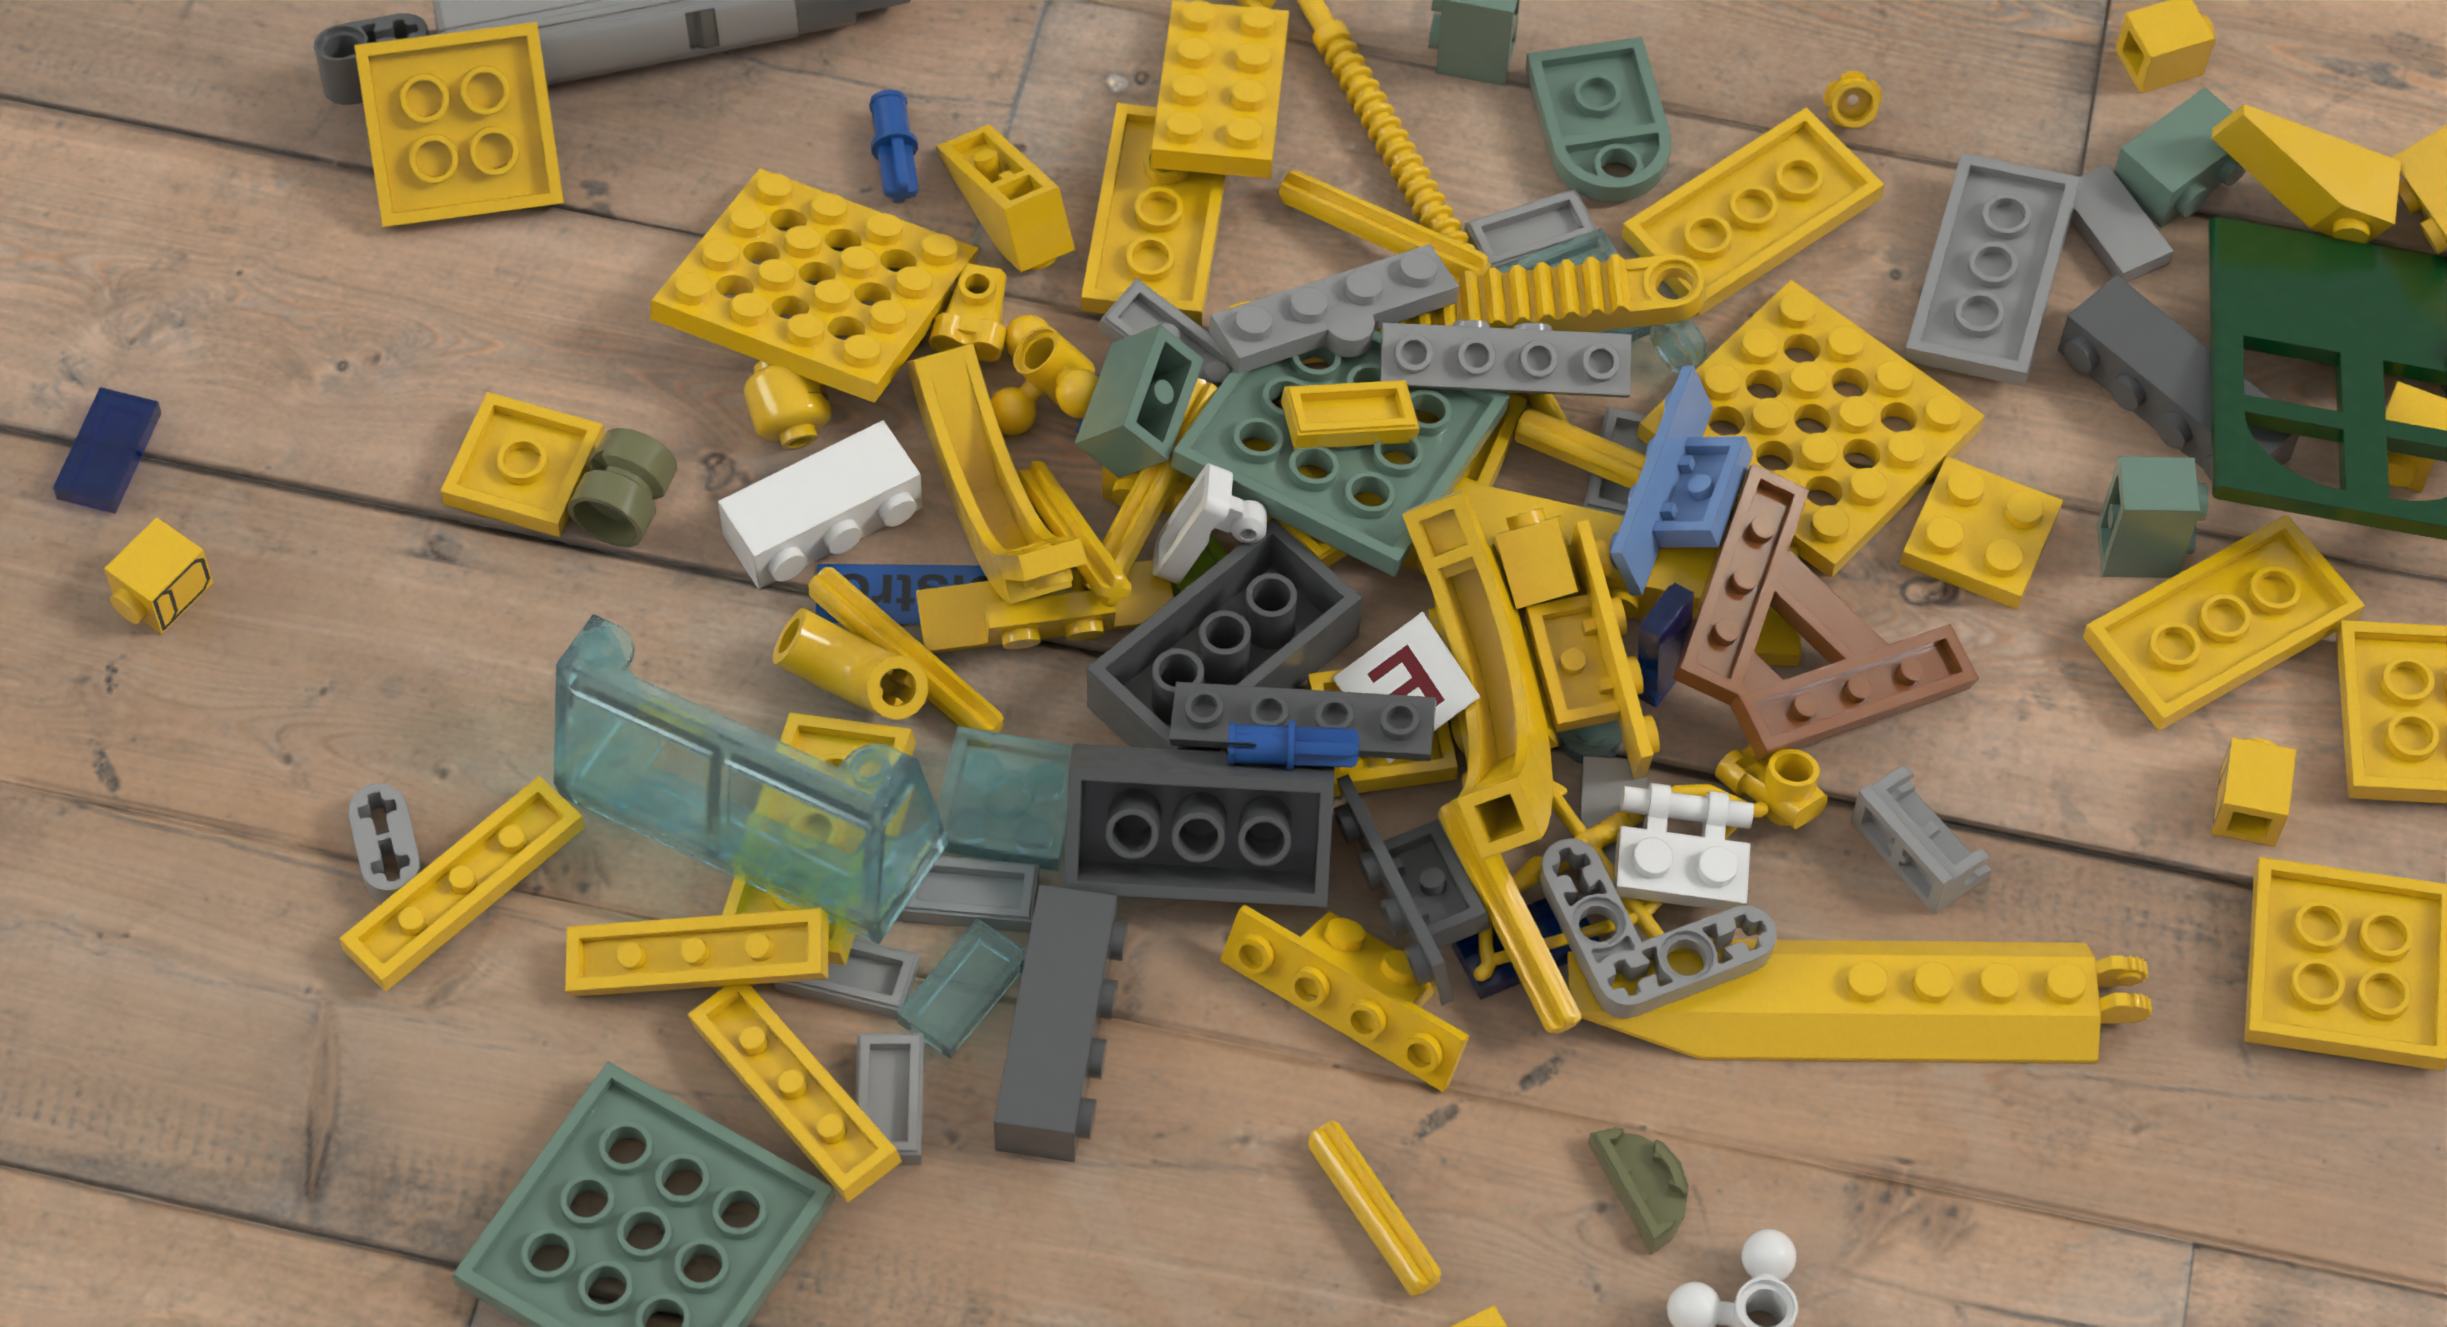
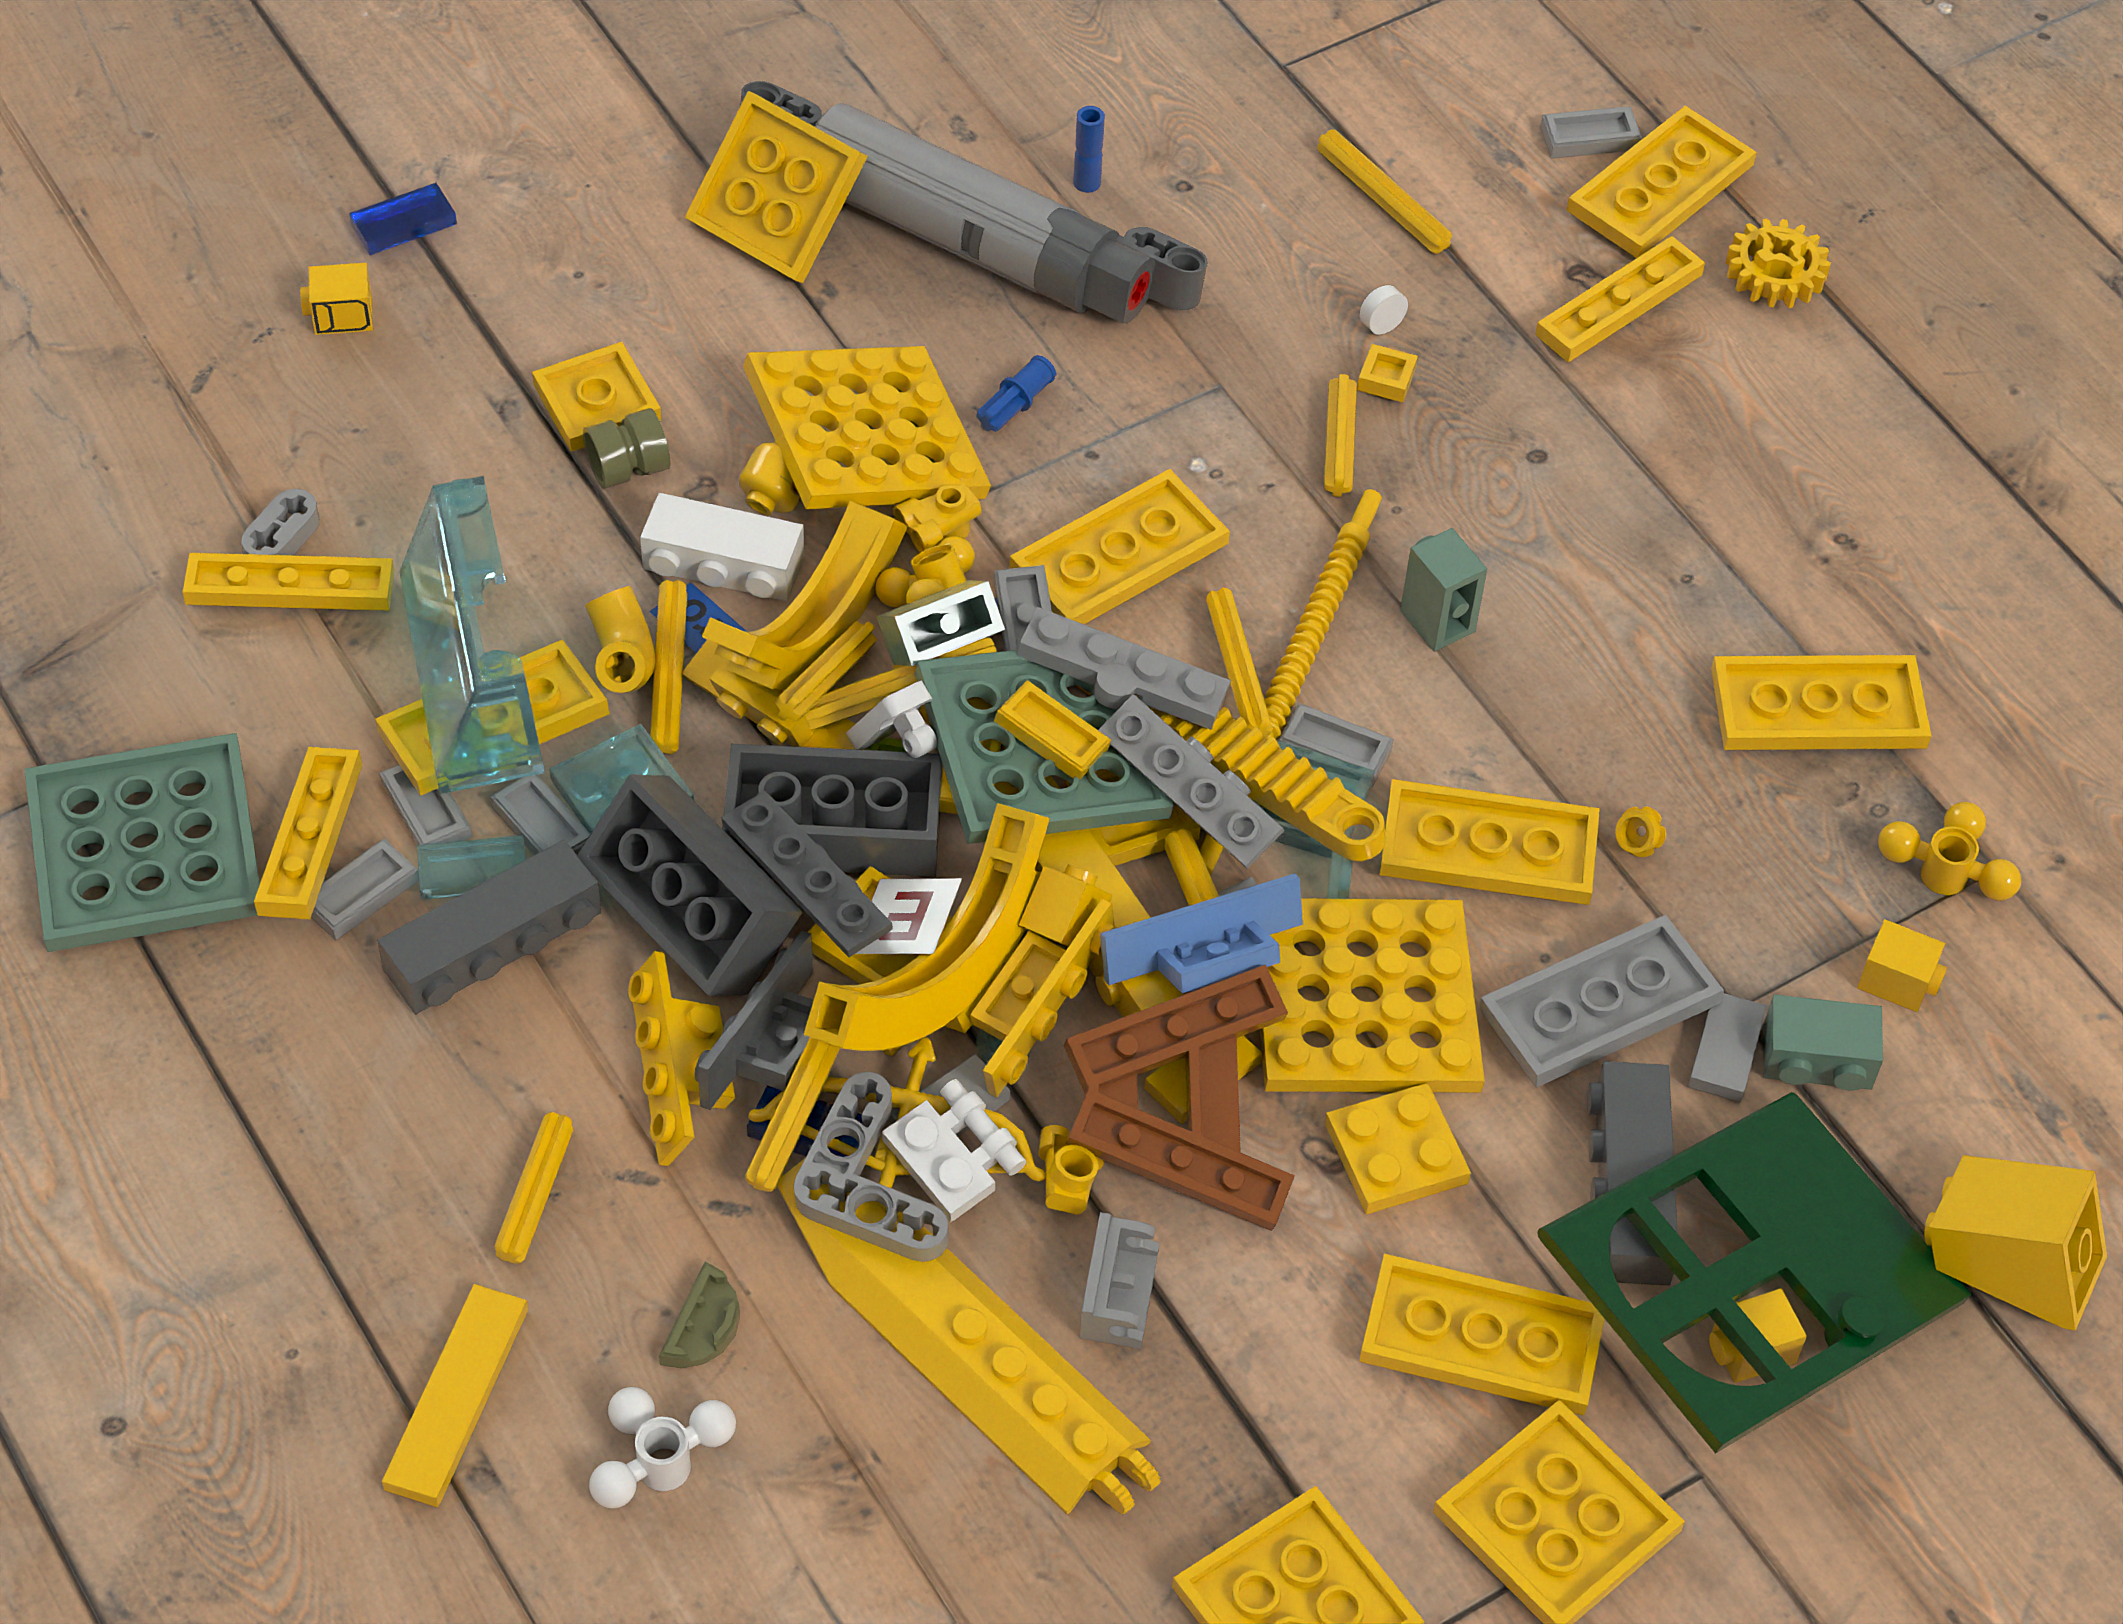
camera: 45 degrees right, 5 degrees down
(697, 952) = (348, 716): yellow plate -> none
(1009, 197) = (1039, 471): yellow slope -> none
(1220, 89) = (1238, 508): yellow plate -> none
(1293, 745) = (770, 873): blue axle -> none
(1598, 110) = (1467, 707): sand green plate -> none
(1662, 640) = (1087, 1009): clear blue tile -> none
(2150, 516) = (1498, 1221): sand green brick -> none
(2254, 791) = (1367, 1446): yellow brick -> none
(2315, 175) = (1892, 1125): yellow slope -> none

